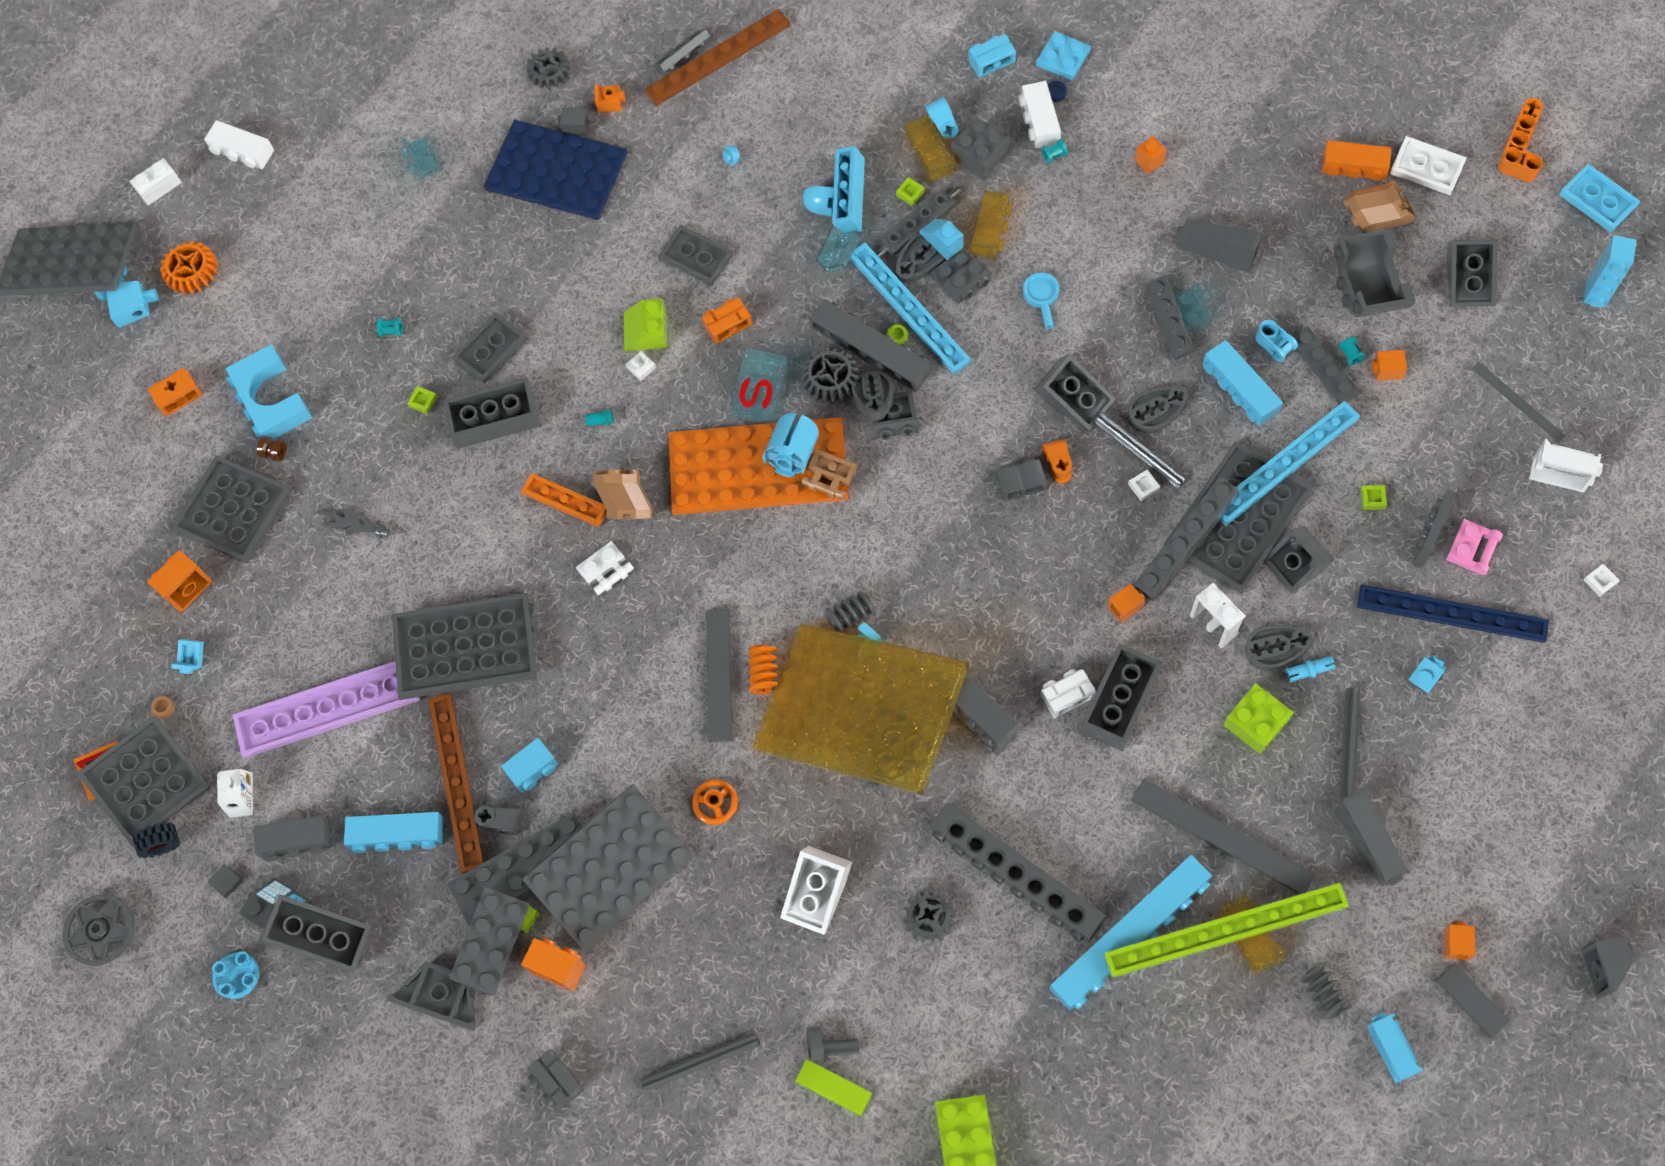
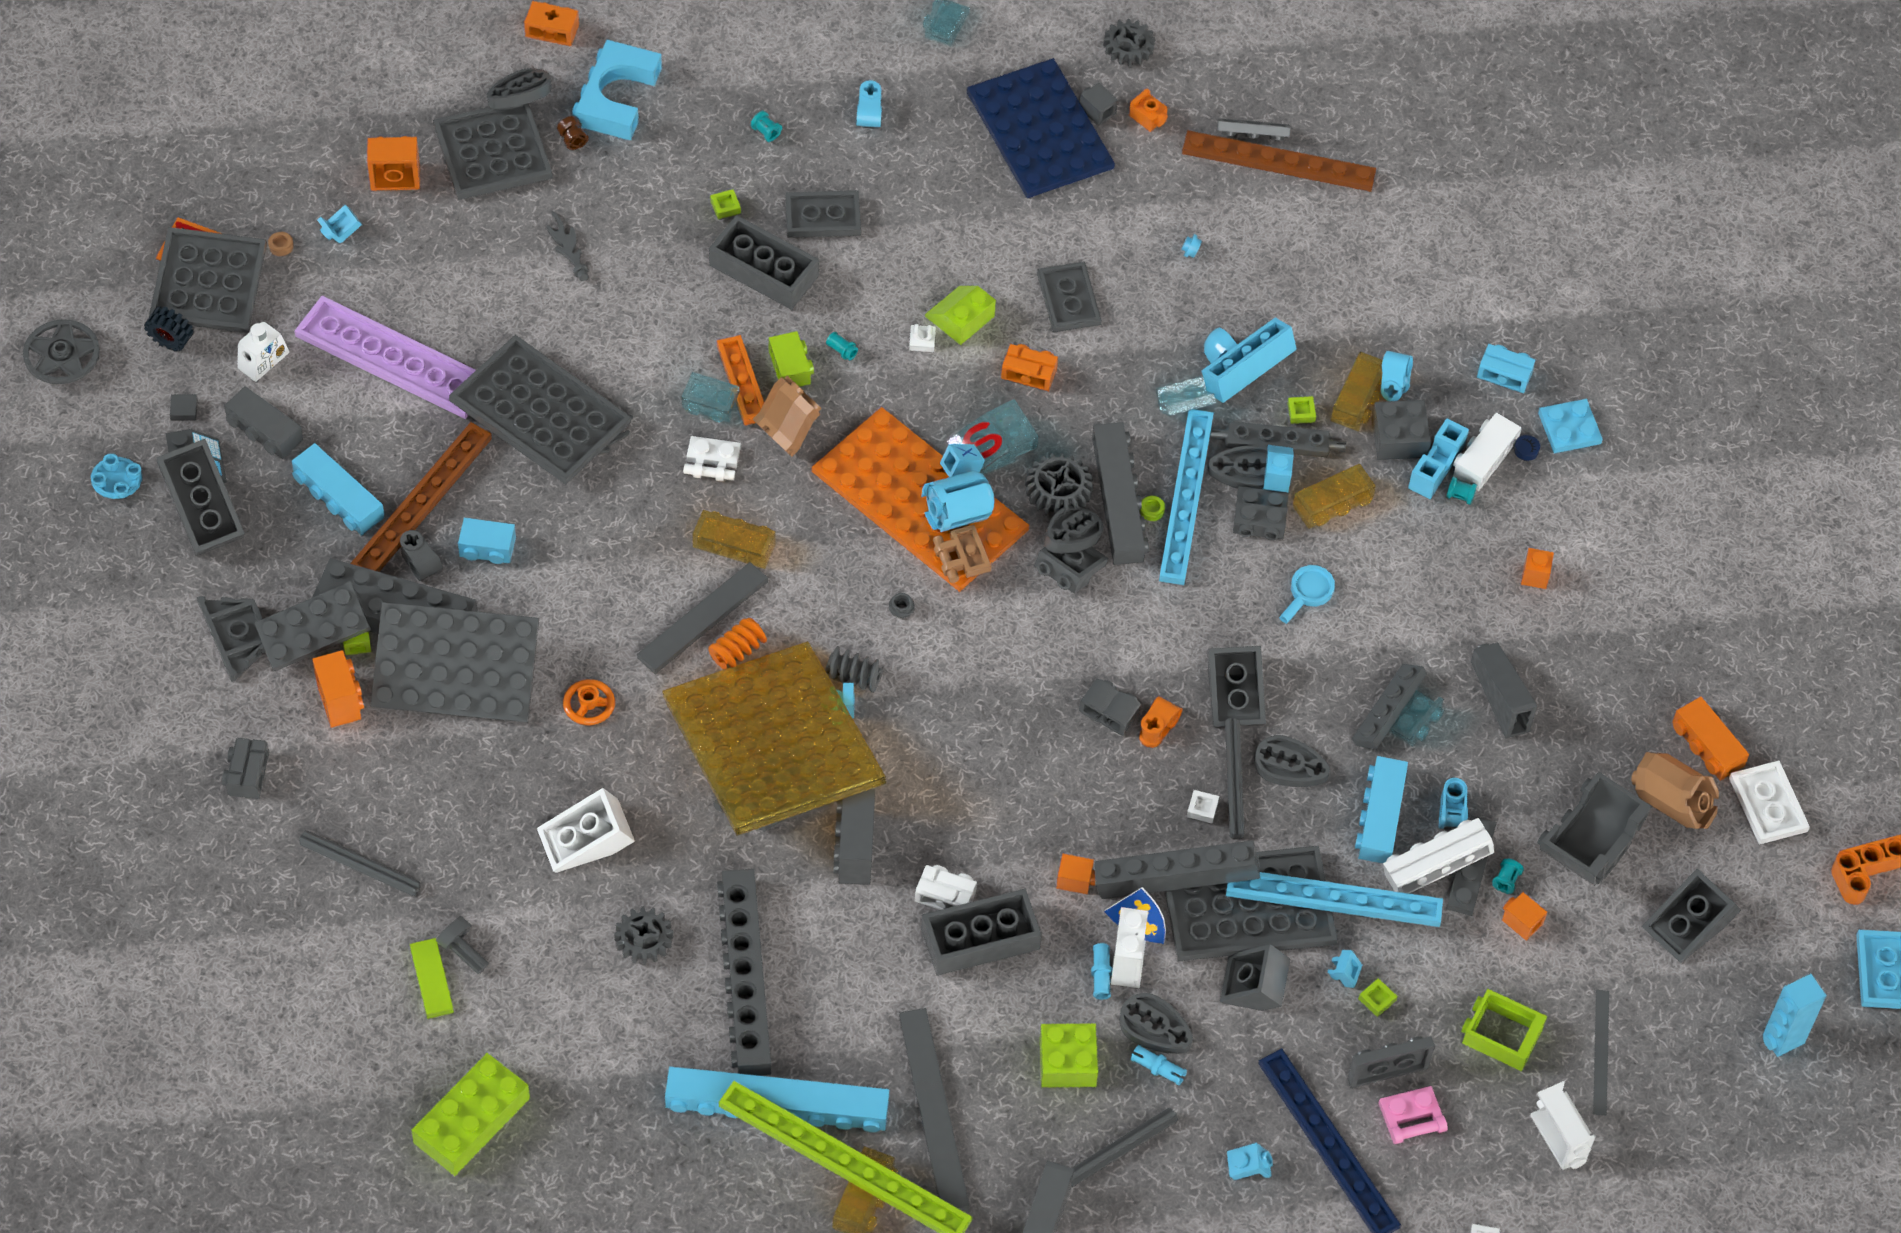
camera: 35 degrees right, 10 degrees down
(204, 453) = (519, 88): none -> dark grey piece
(438, 253) = (869, 105): none -> medium azure piece
(560, 531) = (709, 397): none -> clear light blue bracket
(579, 458) = (790, 359): none -> lime brick
(680, 605) = (734, 538): none -> clear yellow brick
(761, 417) = (961, 459): none -> medium azure brick
(827, 537) = (901, 599): none -> dark grey plate
(1024, 152) = (1434, 467): none -> medium azure arch
(1190, 587) = (1142, 900): none -> blue shield
(1211, 646) = (1101, 971): none -> medium azure pin
(1308, 379) = (1438, 856): none -> white brick
(1338, 497) = (1347, 968): none -> medium azure tile
(1479, 432) = (1512, 1010): none -> lime window

